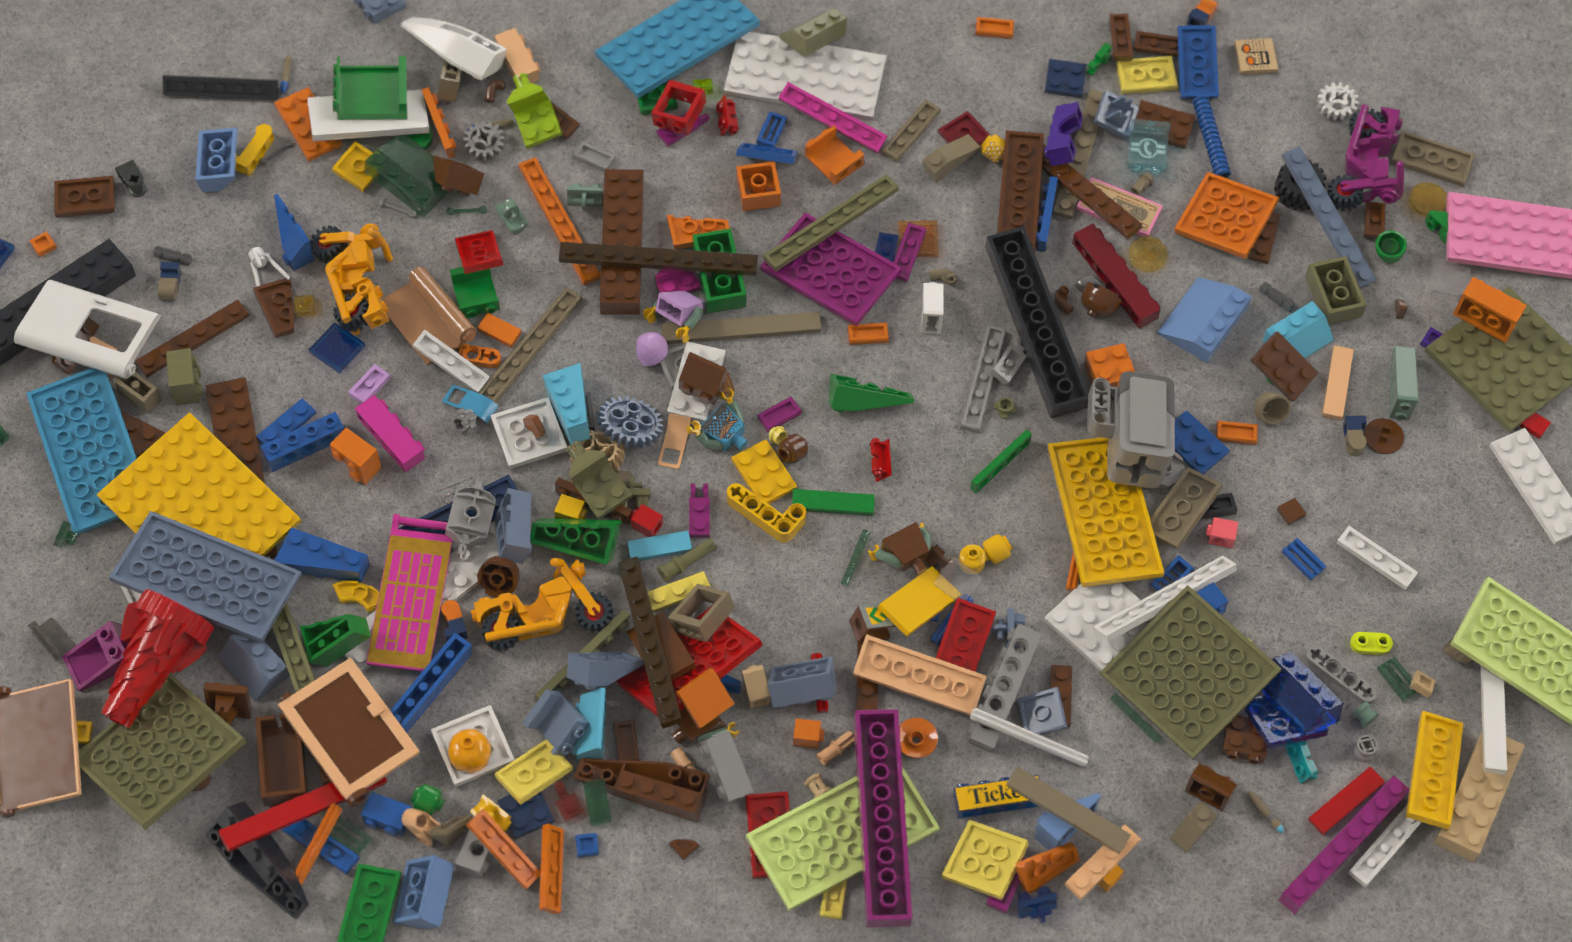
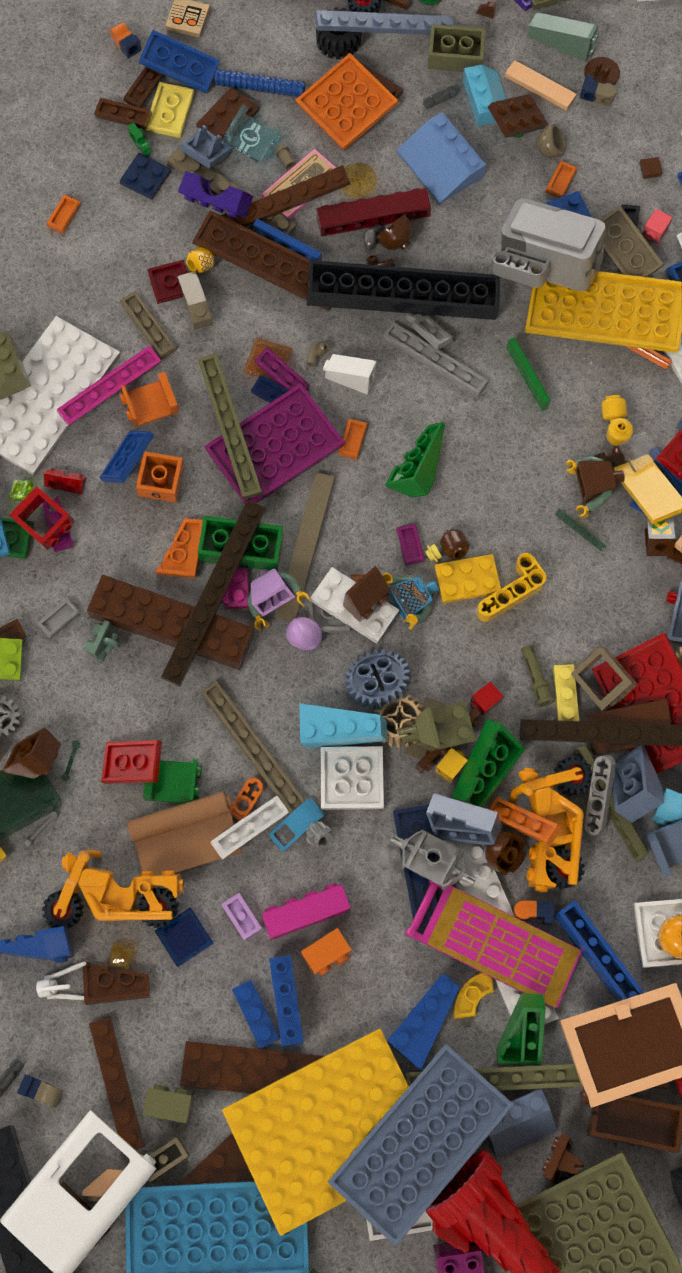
camera: 70 degrees left, 10 degrees up
(499, 330) = (223, 770): orange tile -> none
(511, 216) = (100, 717): sand green hips -> none
(531, 578) = (525, 821): none -> orange plate
(534, 425) = (351, 768): dark orange tile -> none
(555, 214) = (108, 676): orange tile -> none
(583, 639) = (596, 793): none -> light grey beam
(641, 495) = (457, 695): olive hips -> none
(660, 546) = (513, 696): medium azure tile -> none
(675, 438) = (400, 643): light nougat piece -> none
(699, 513) = (489, 649): magenta hinge -> none
(767, 142) = (107, 456): blue tile -> none
(835, 502) = (518, 529): green tile -> none
(882, 459) = (491, 472): red hinge -> none
(1005, 401) = (472, 346): olive plate -> none
(1108, 363) = (468, 251): orange brick -> none

